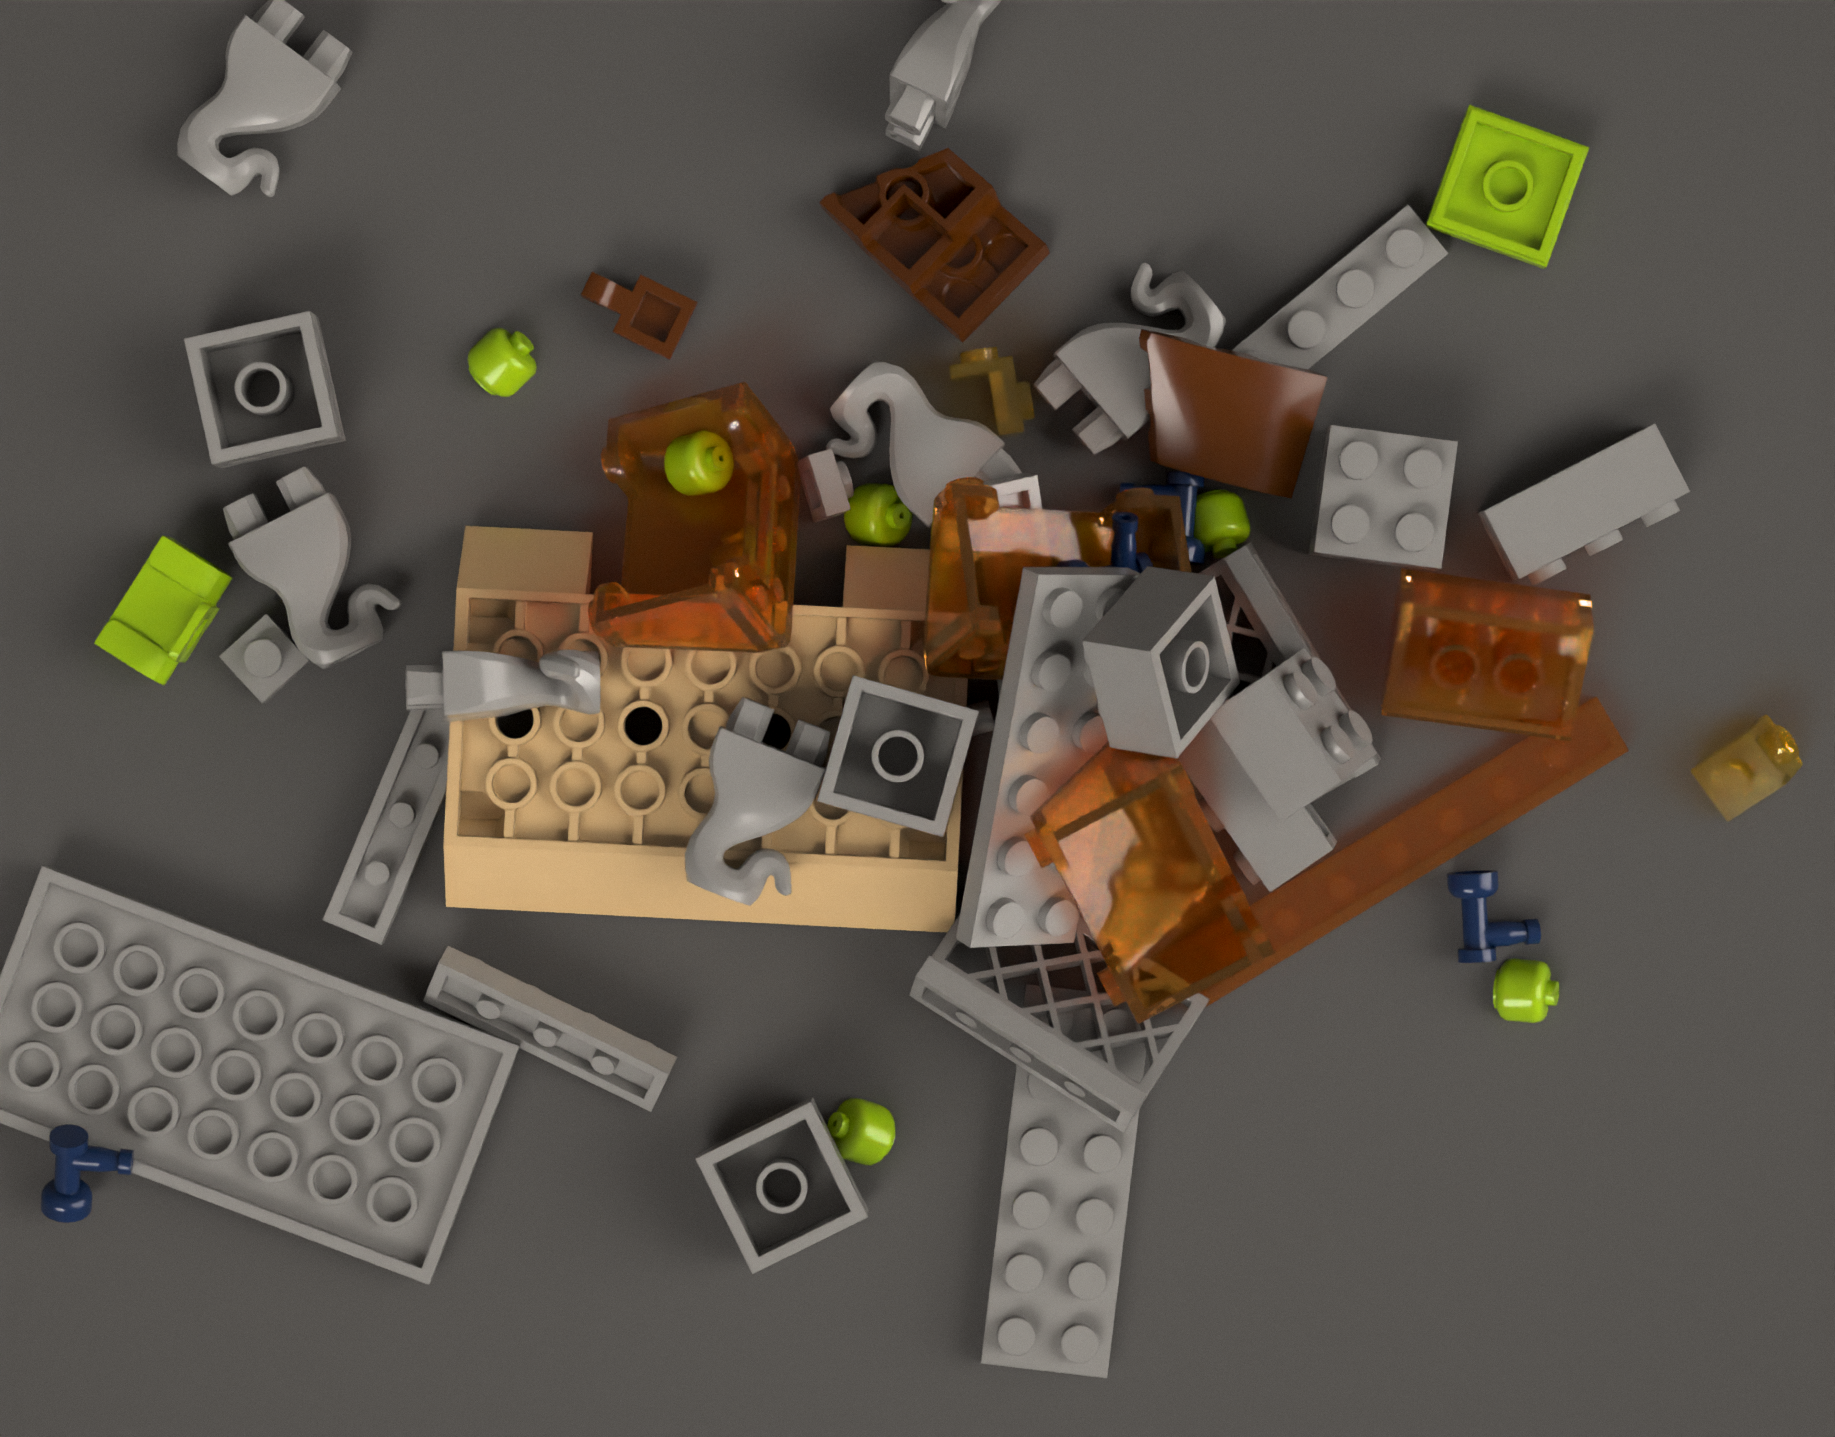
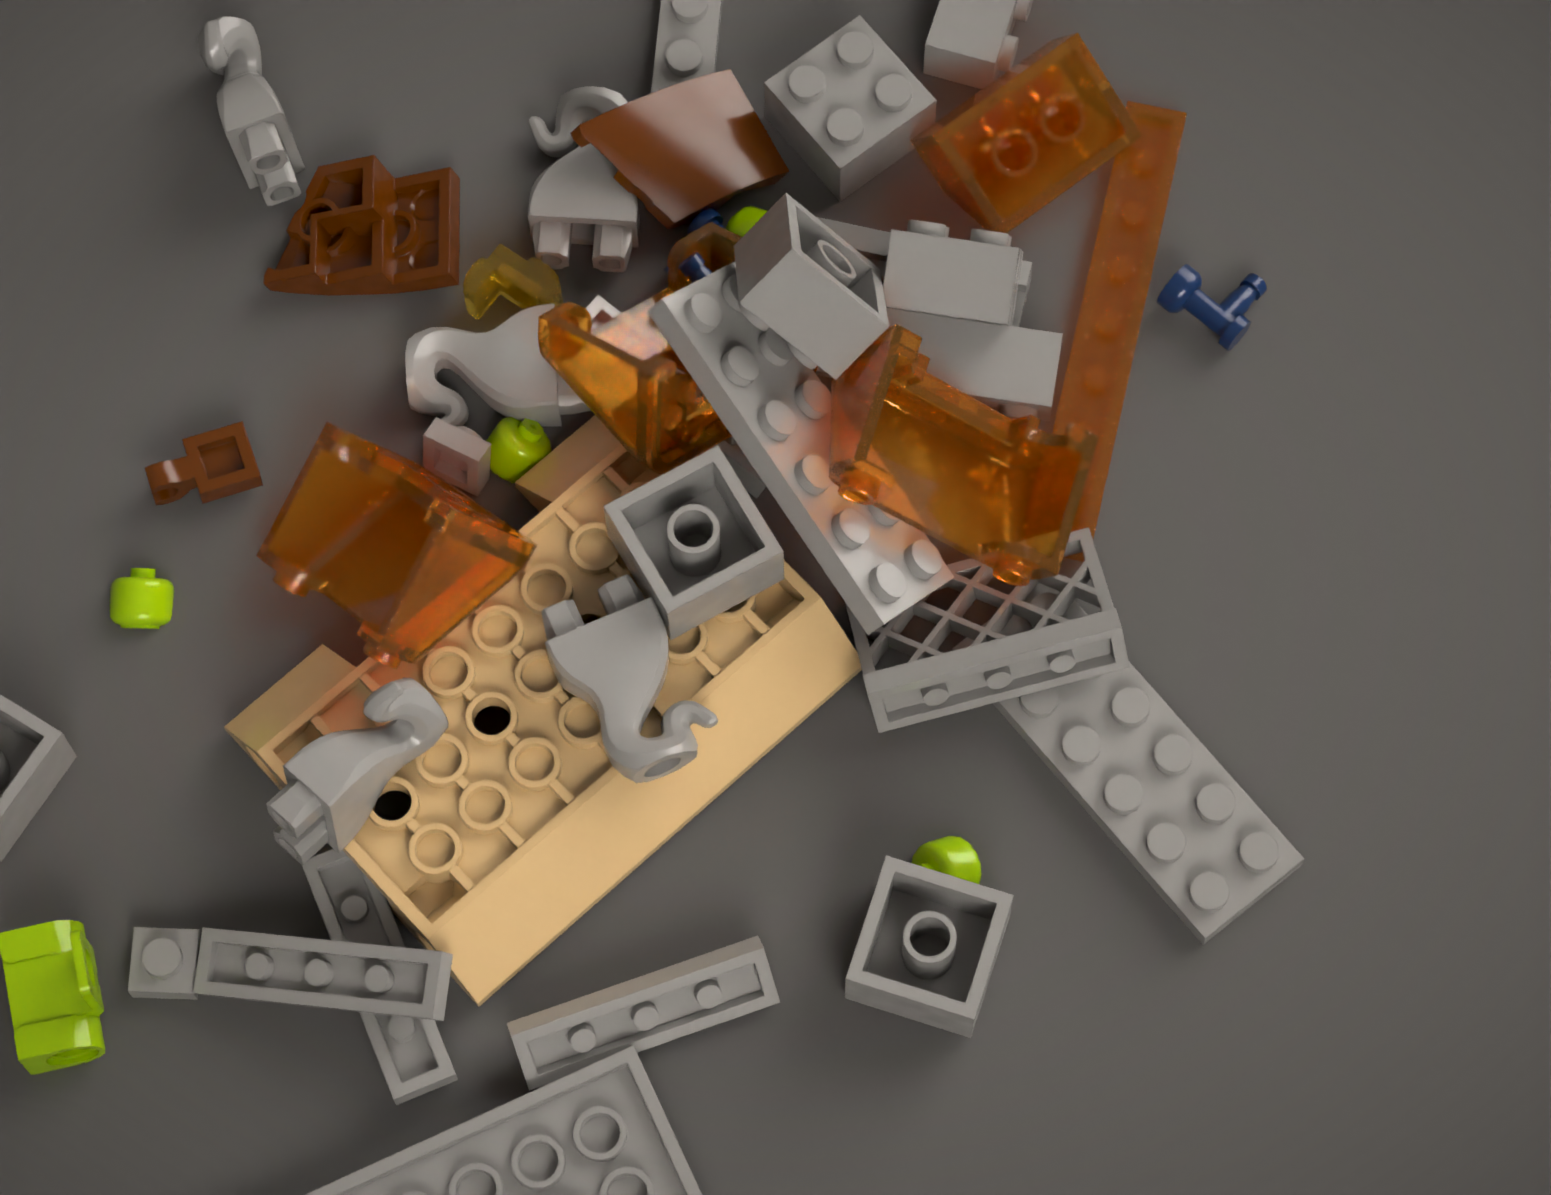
camera: 40 degrees left, 20 degrees down
(305, 563) = (126, 863): light grey hips -> none
(355, 788) = (323, 973): none -> light grey plate
(698, 463) = (351, 524): lime piece -> none
(1524, 990) = (1292, 330): lime piece -> none
(1749, 767) = (1275, 50): clear yellow bracket -> none

